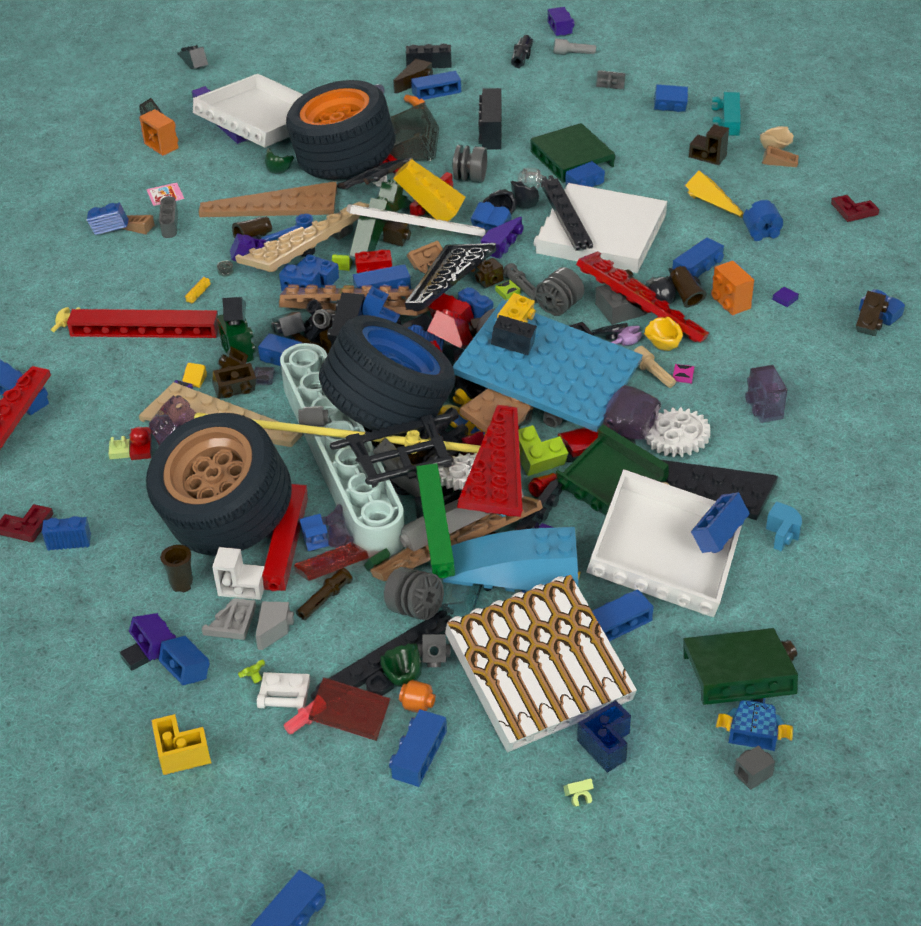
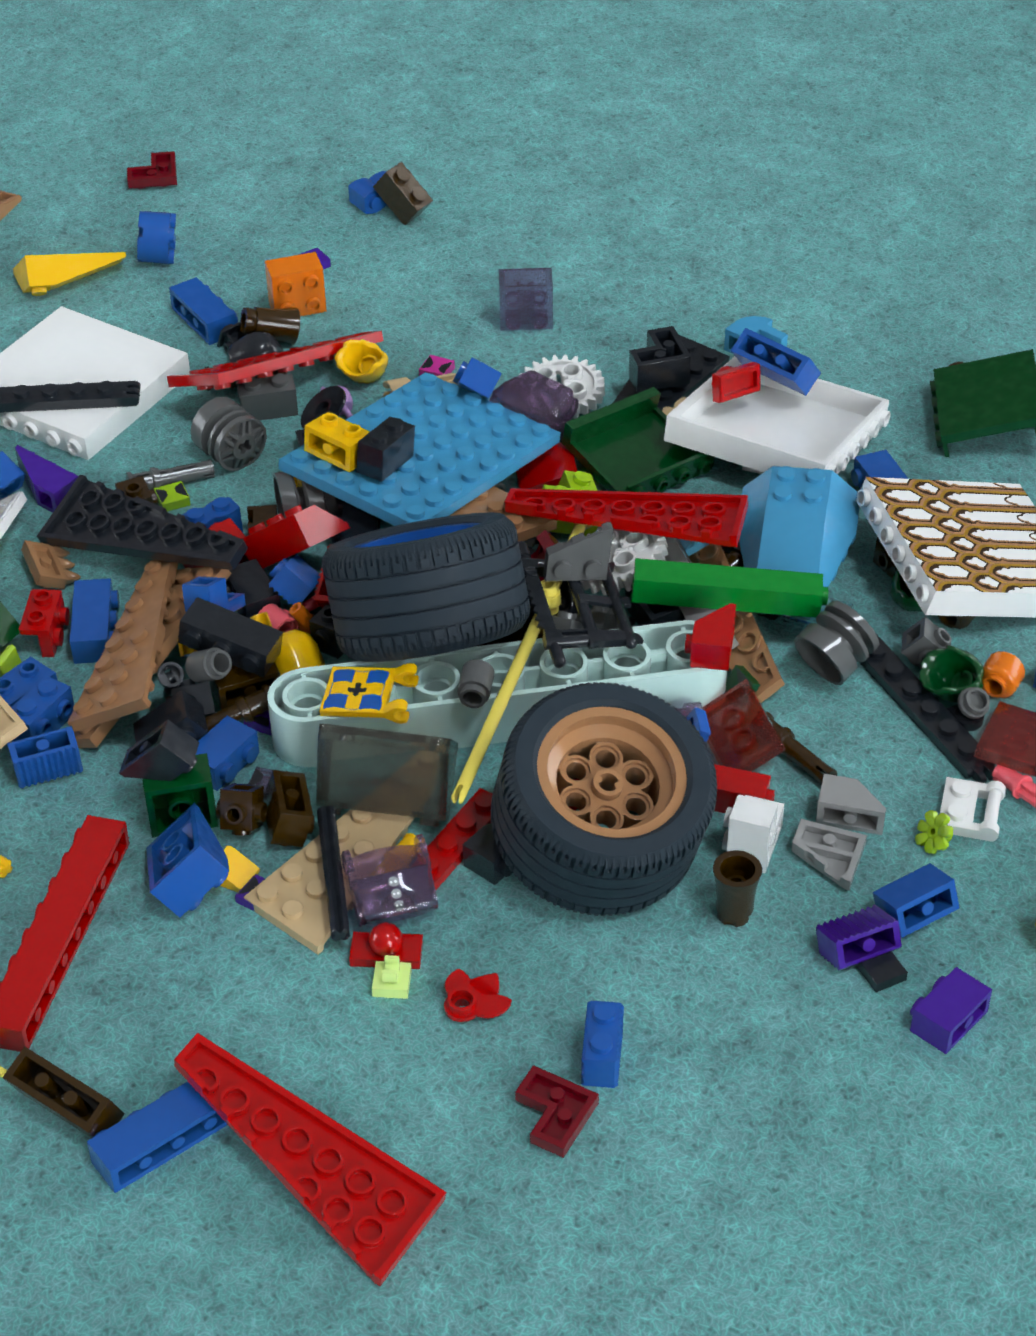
camera: 80 degrees left, 0 degrees up
(30, 346) = (62, 1093): none -> dark brown brick
(96, 687) = (950, 1009): none -> dark purple brick
(107, 481) = (477, 994): none -> red plate
(177, 352) = (186, 862): none -> blue slope
(195, 403) = (333, 873): none -> black axle
(254, 389) = (385, 772): none -> clear smoke windscreen
(263, 288) = (45, 757): none -> blue brick
(302, 376) = (367, 692): none -> yellow flag
(375, 515) = (712, 639): none -> red slope
(376, 678) = (974, 702): none -> dark grey plate
(425, 436) = (580, 557): none -> dark grey wing
(643, 377) = (477, 378): none -> blue brick
(682, 501) = (735, 382): none -> red tile
(708, 470) = (661, 363): none -> black brick

